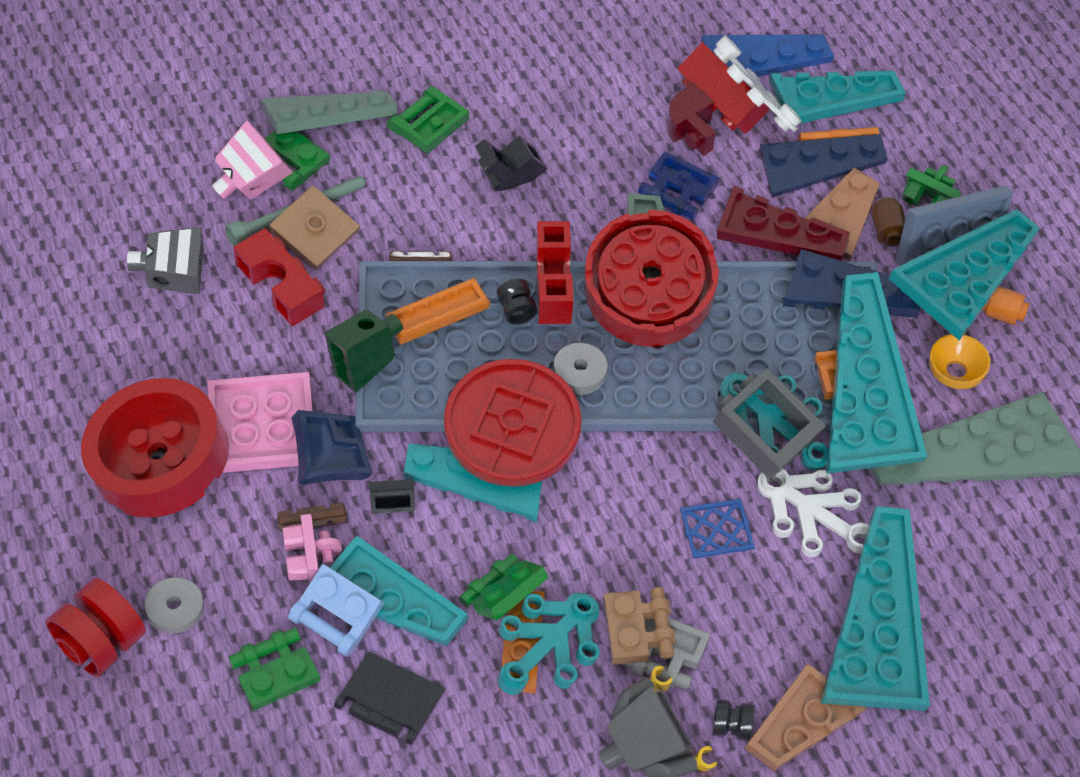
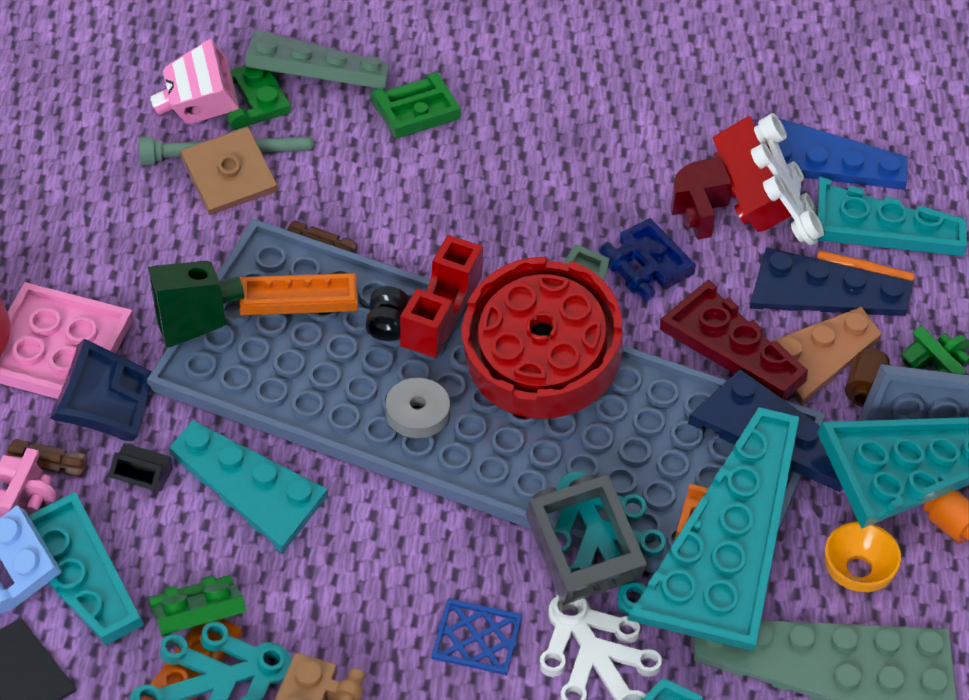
camera: 25 degrees right, 5 degrees down
(171, 260) = (66, 153): dark grey torso -> none
(267, 257) = (166, 229): red arch -> none
(512, 165) = (471, 179): black brick -> none
(512, 422) = (308, 436): red plate -> none

